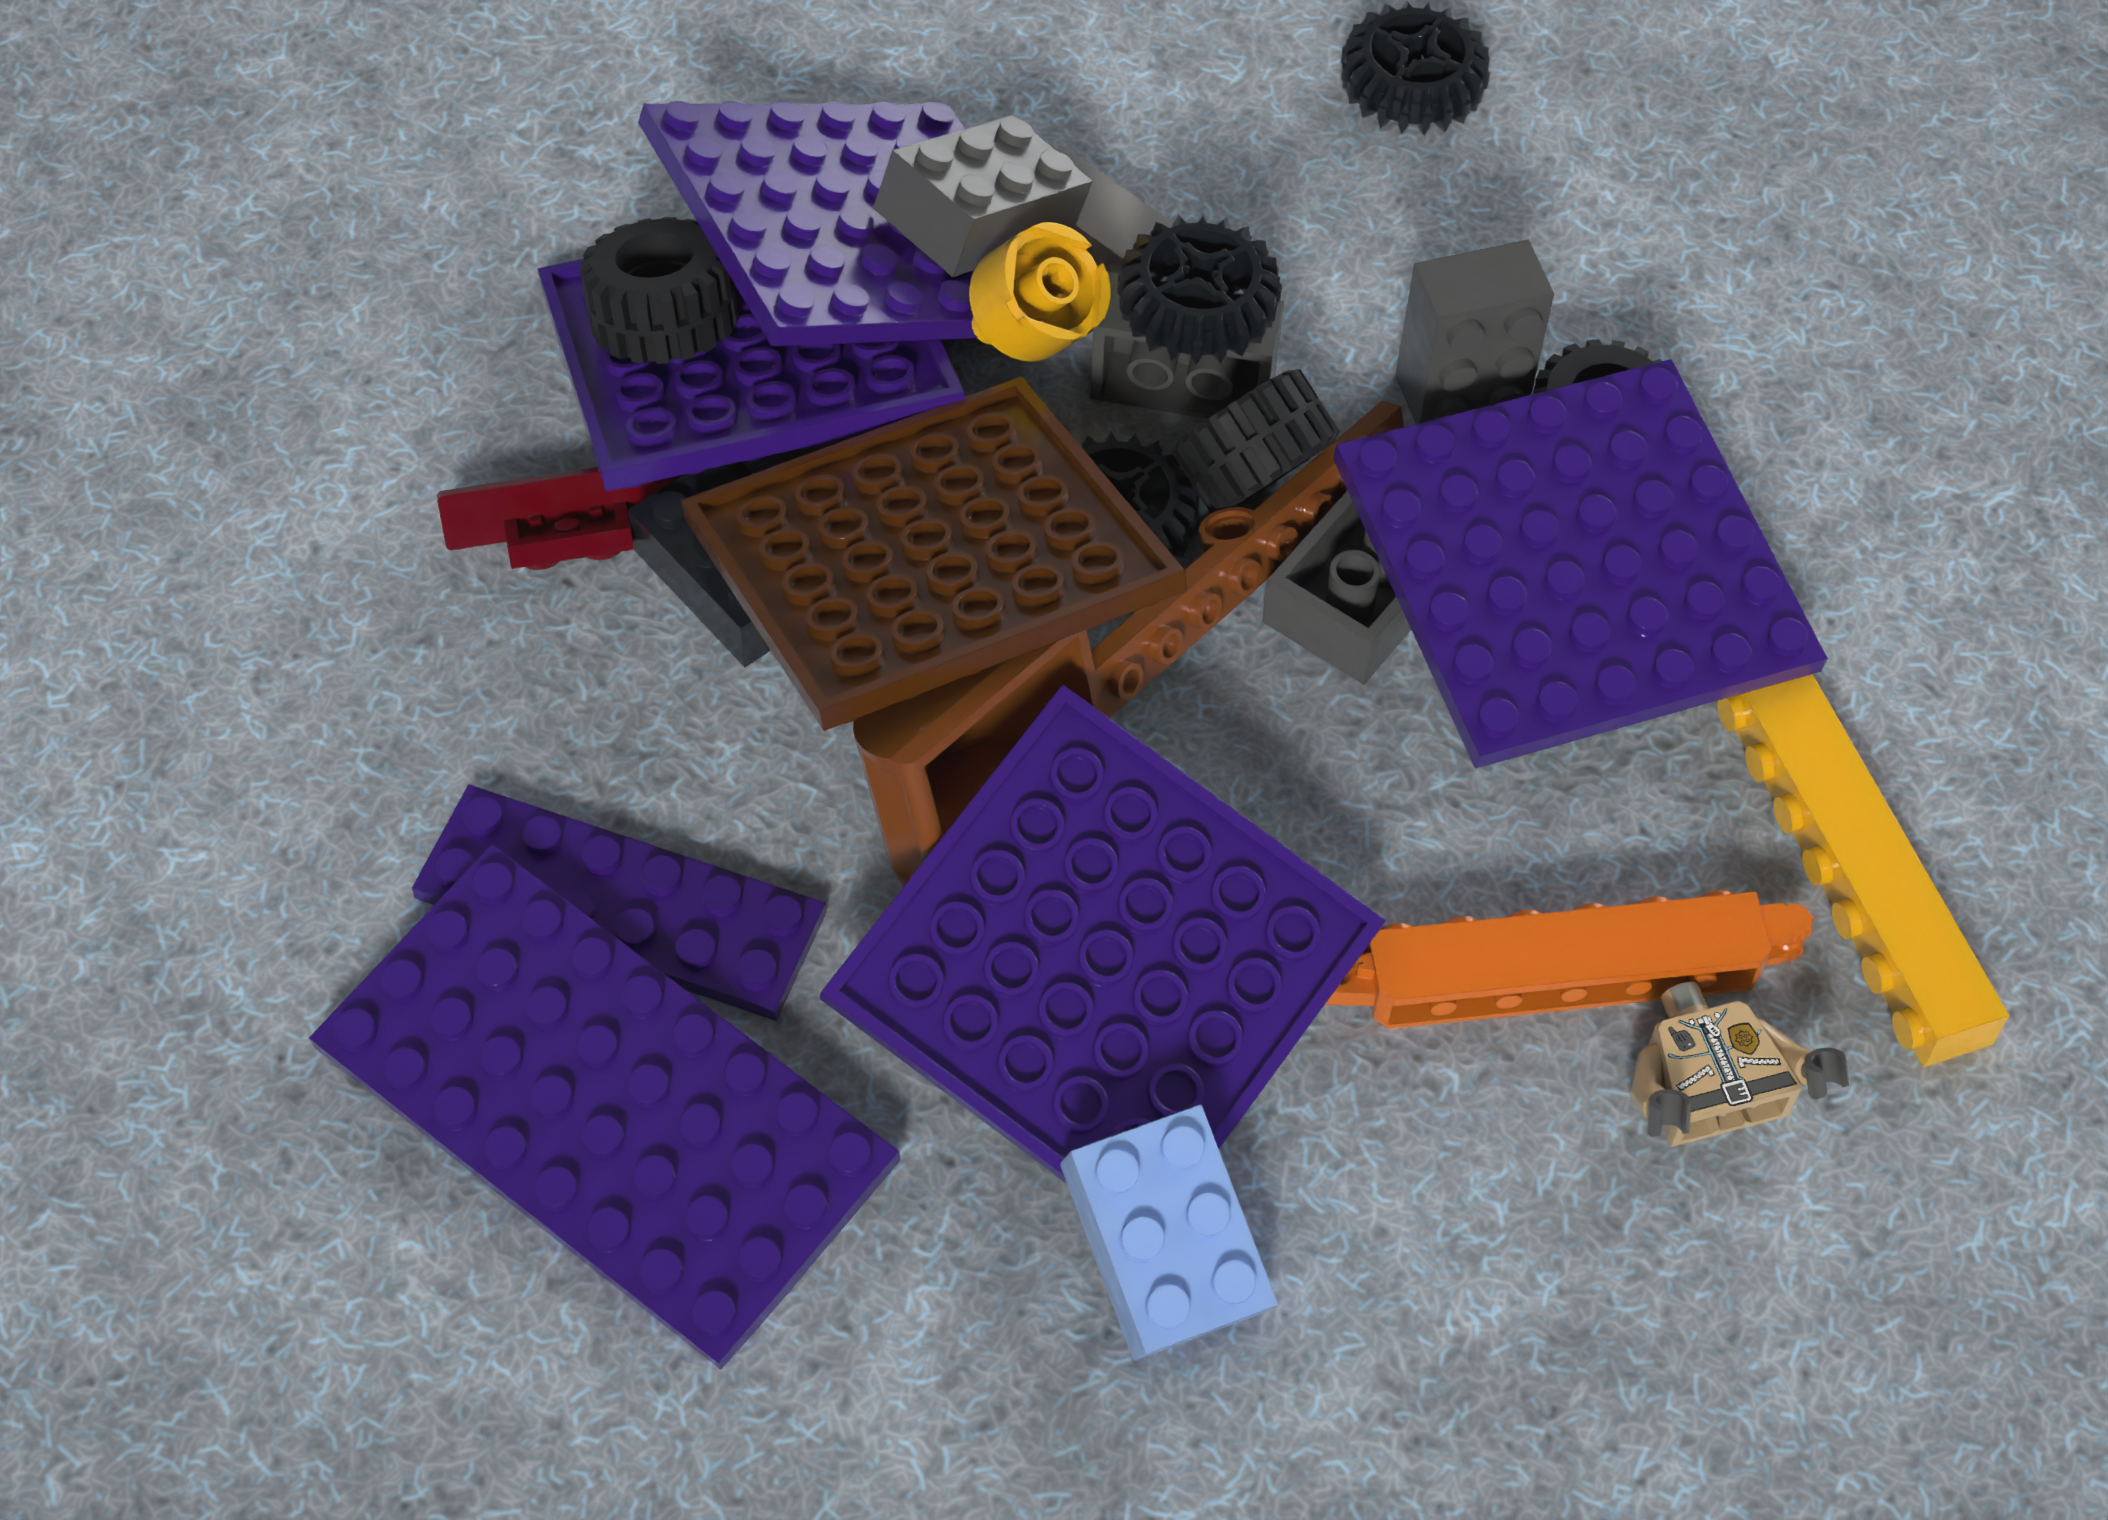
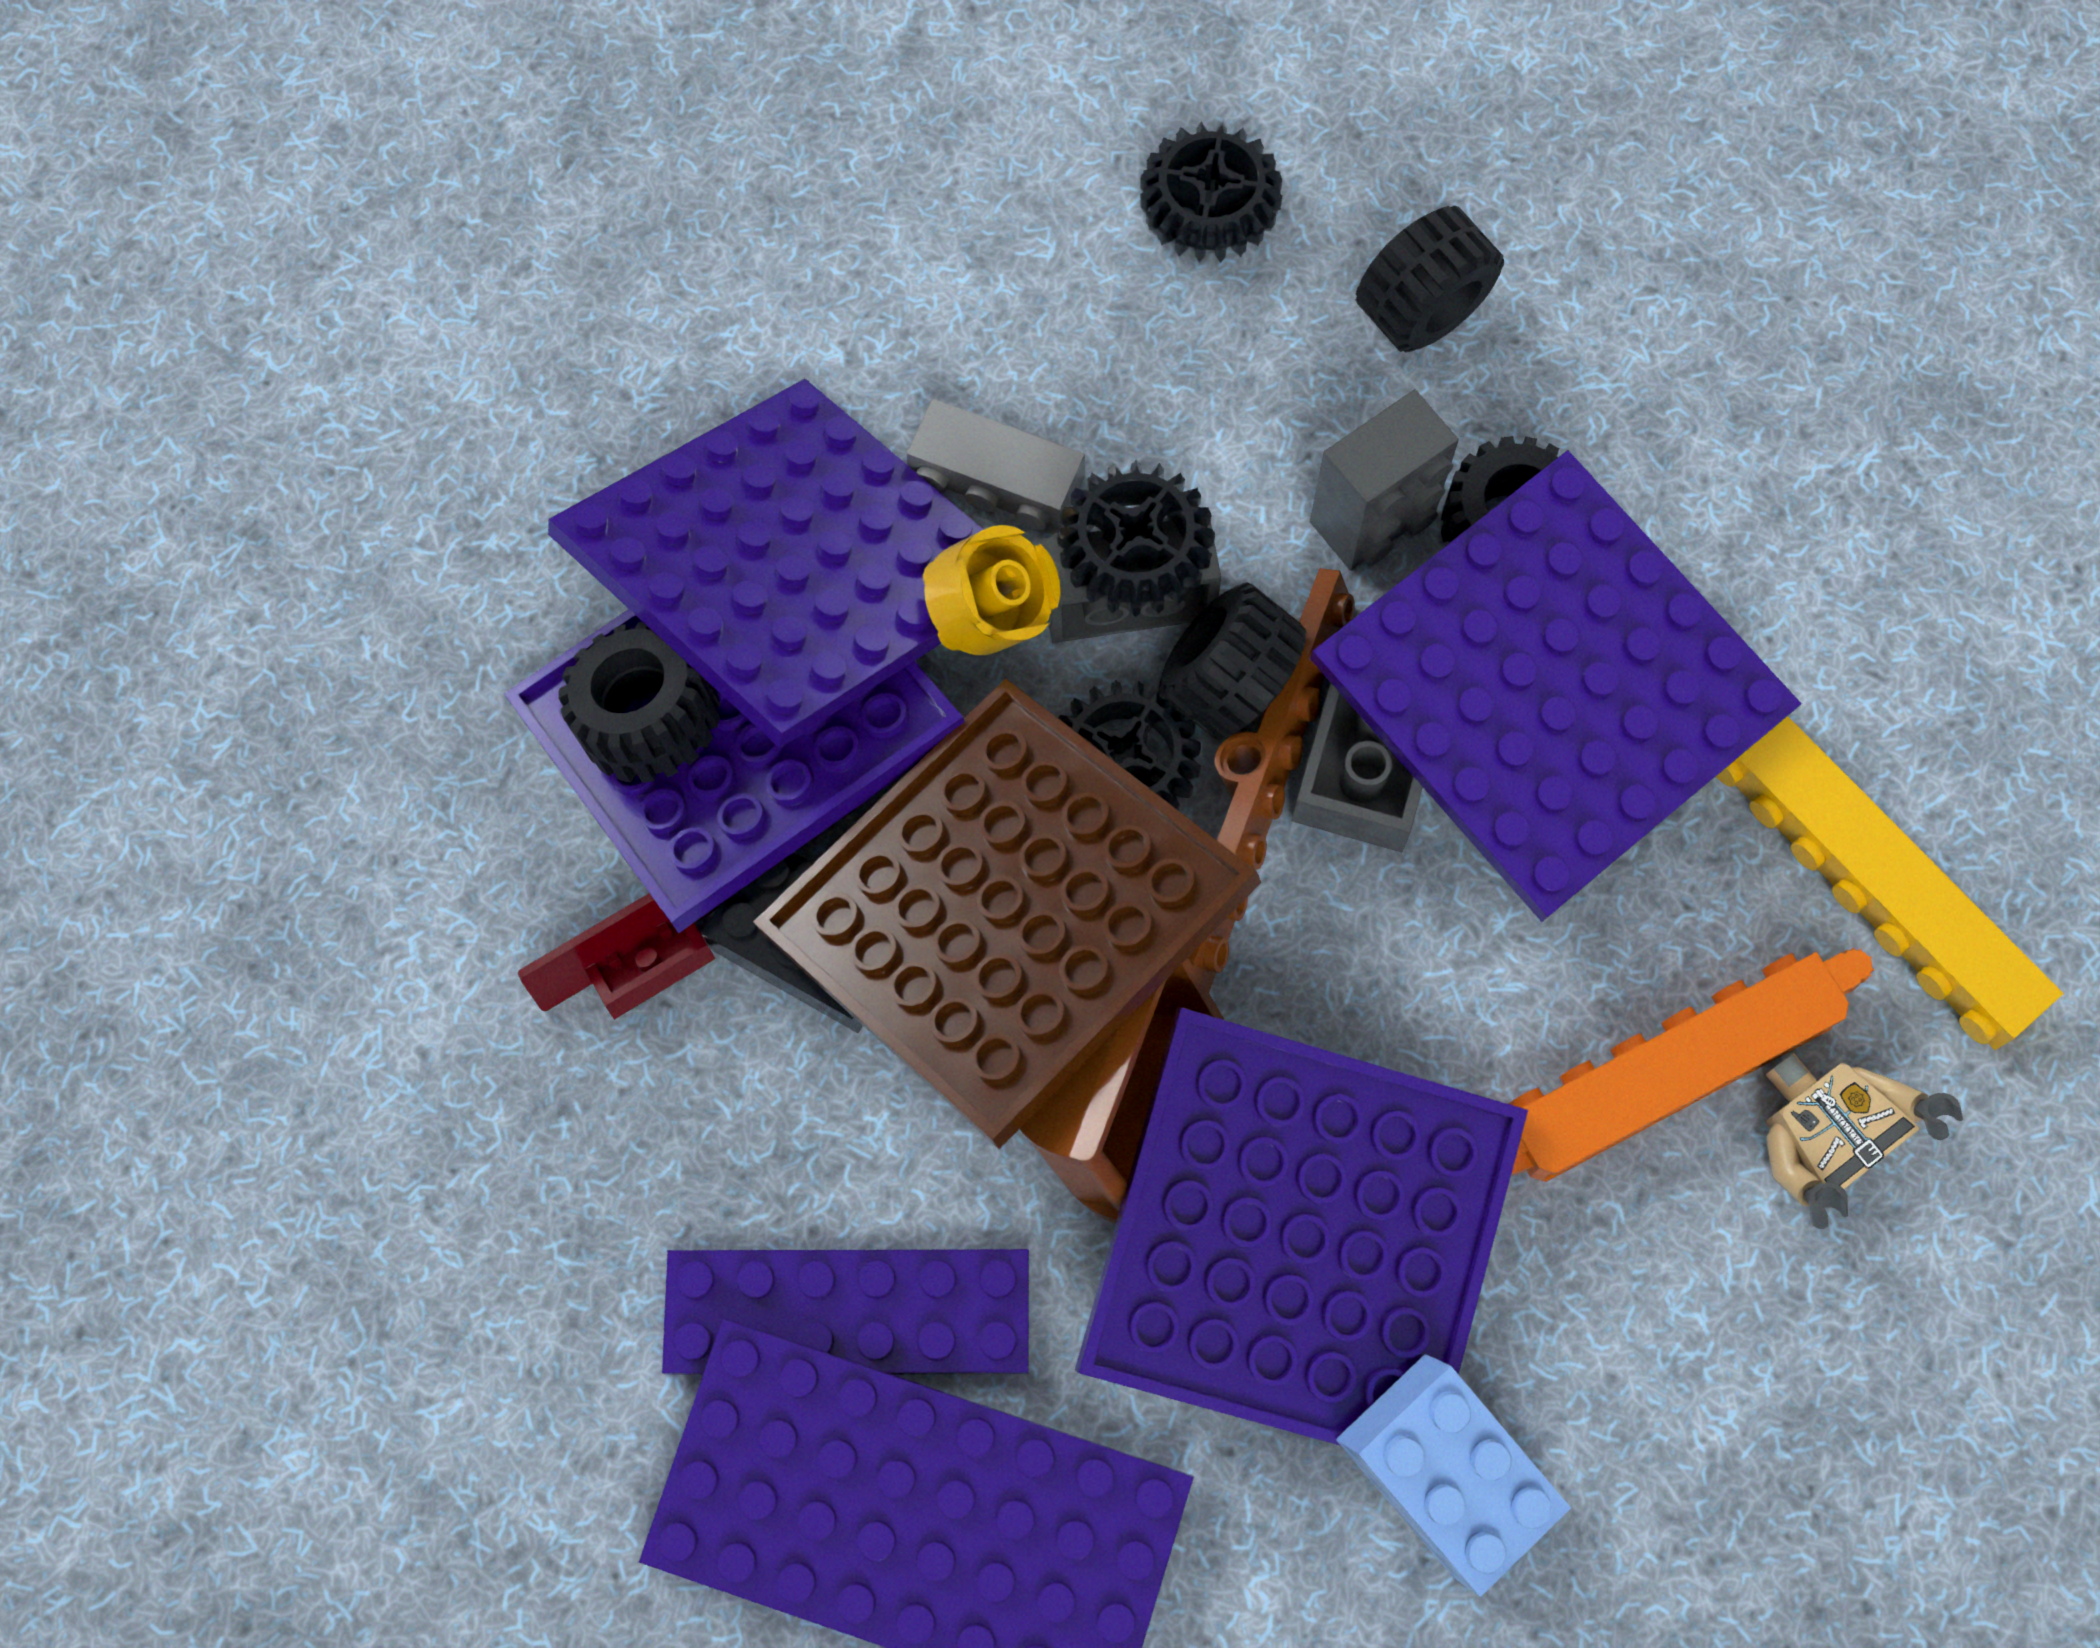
camera: 15 degrees left, 15 degrees up
(978, 190) = (893, 496): dark grey brick -> none
(1597, 188) = (1429, 278): none -> black tyre

